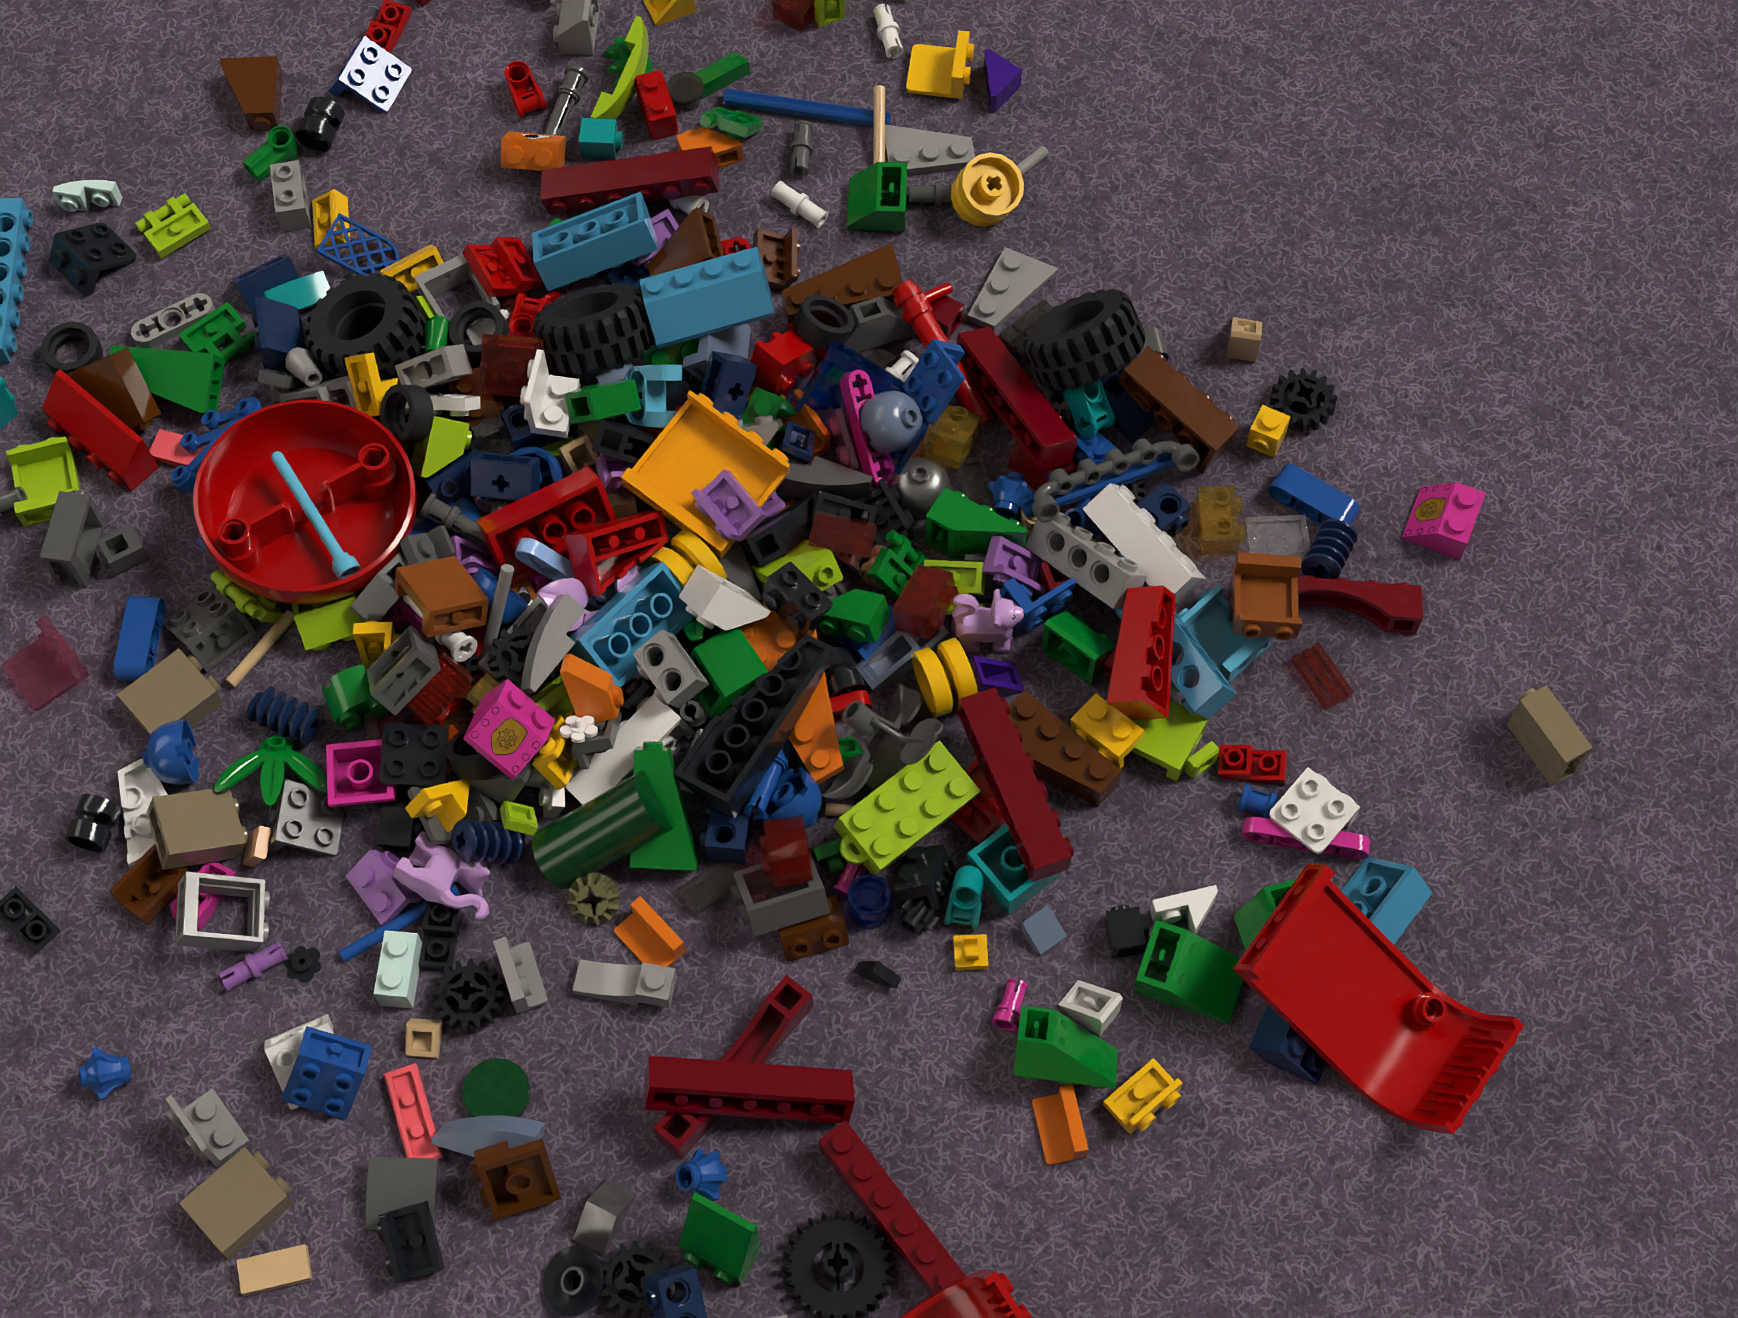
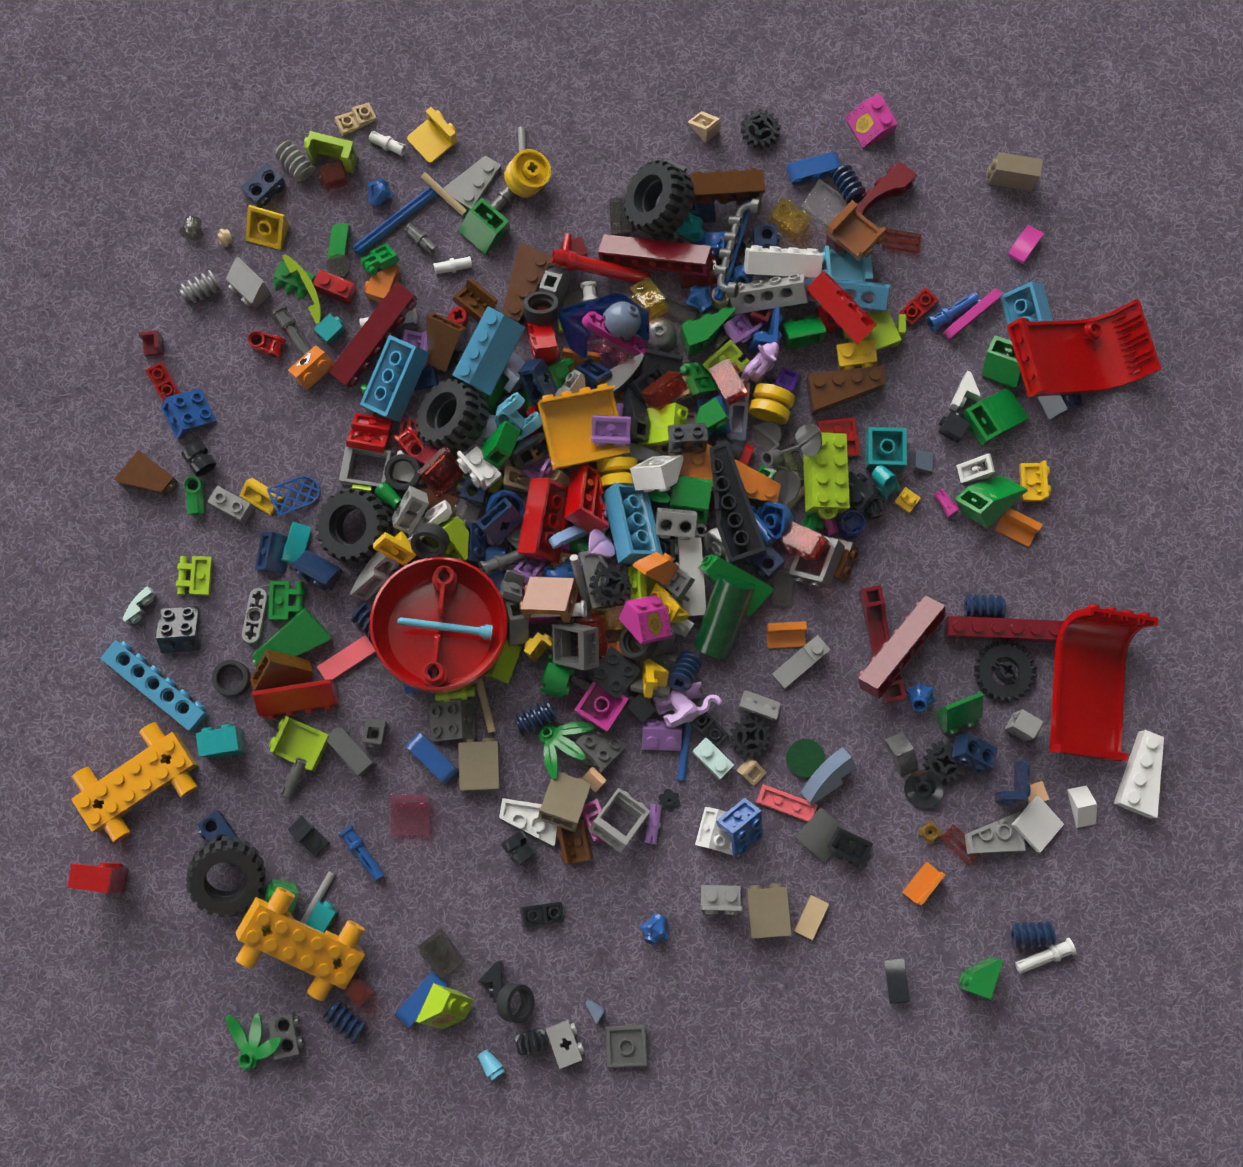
camera: 55 degrees left, 15 degrees up
(172, 754) = (514, 786): blue cylinder -> none
(184, 477) = (356, 642): blue plant -> none
(279, 382) = (343, 588): dark grey bracket -> none
(303, 366) = (349, 571): light grey cone -> none
(413, 265) = (328, 476): yellow slope -> none
(514, 1177) = (860, 781): reddish brown plate -> none
(518, 818) = (683, 649): lime tile -> none
(550, 641) = (620, 567): light grey slope -> none
(579, 728) = (672, 588): white plant -> none
(603, 887) = (742, 651): olive gear -> none
(817, 63) = (379, 192): none -> blue rock
(878, 973) = (885, 548): black tile -> none
(905, 1167) = (985, 605): none -> dark blue piece
(935, 378) = (620, 283): blue bracket -> none
(1001, 79) = (463, 114): dark purple slope -> none
(1008, 287) = (584, 207): light grey wing -> none
(1014, 784) = (856, 416): dark red brick -> none
(1268, 431) = (764, 157): yellow brick -> none
(1314, 811) = (967, 299): white bracket -> none
(1462, 830) = (1025, 244): none -> dark pink slope

